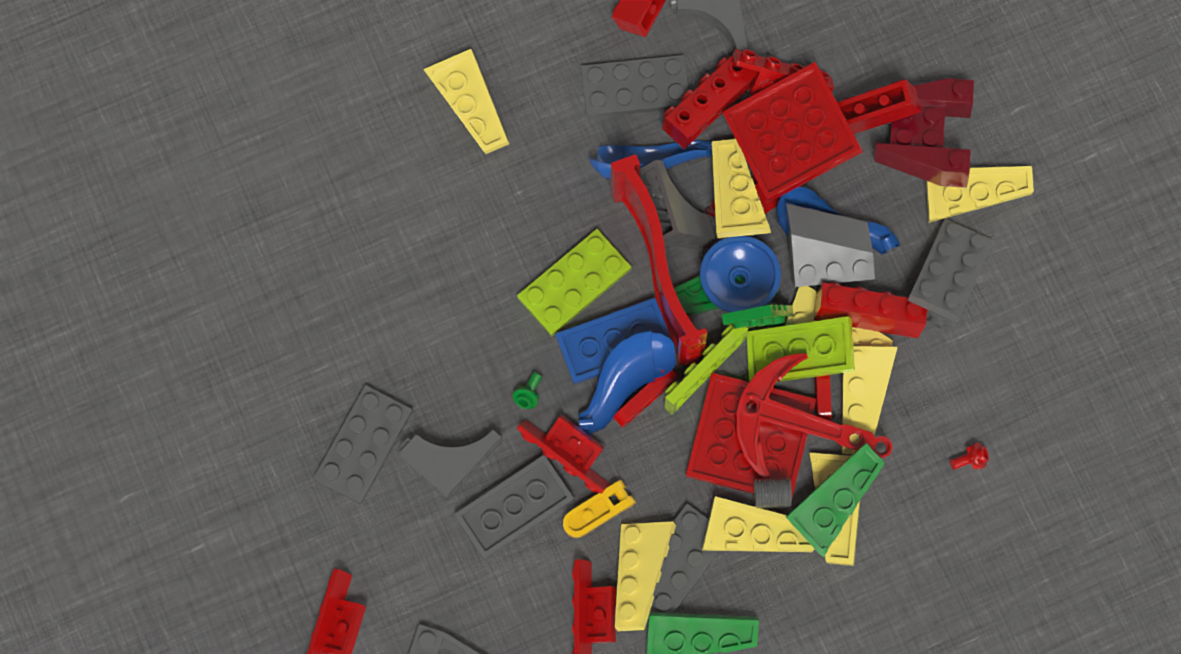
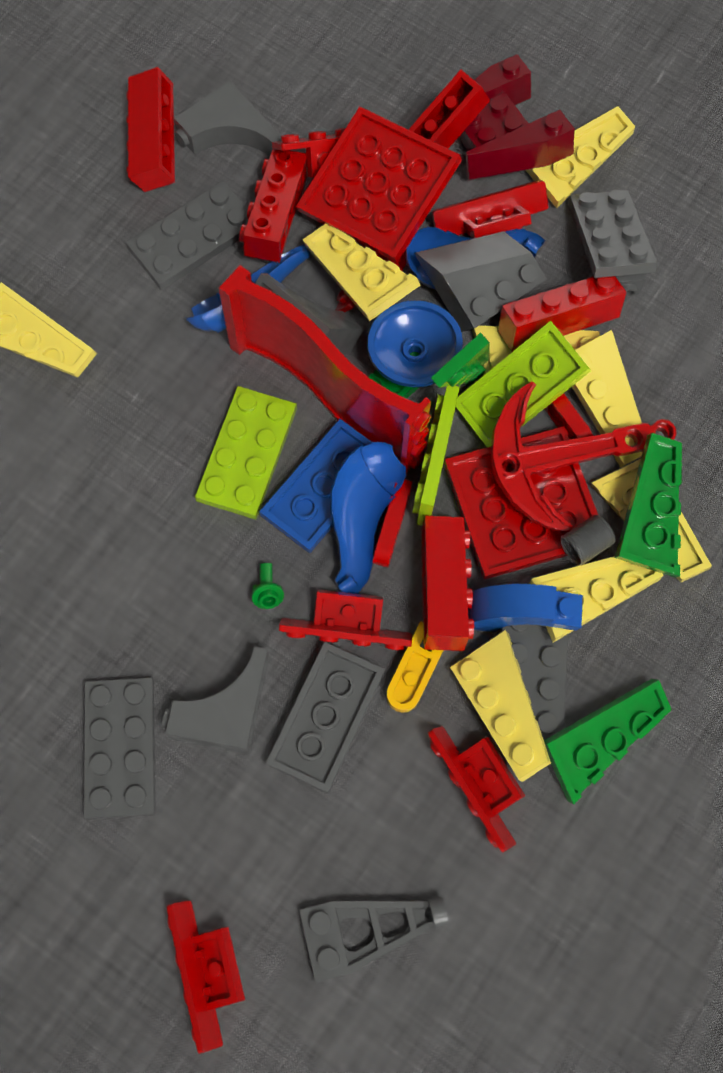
camera: 35 degrees left, 5 degrees down
(652, 462) = (445, 583): none -> red brick
(695, 512) = (525, 605): none -> blue arch
(872, 200) = (493, 212): none -> red bracket

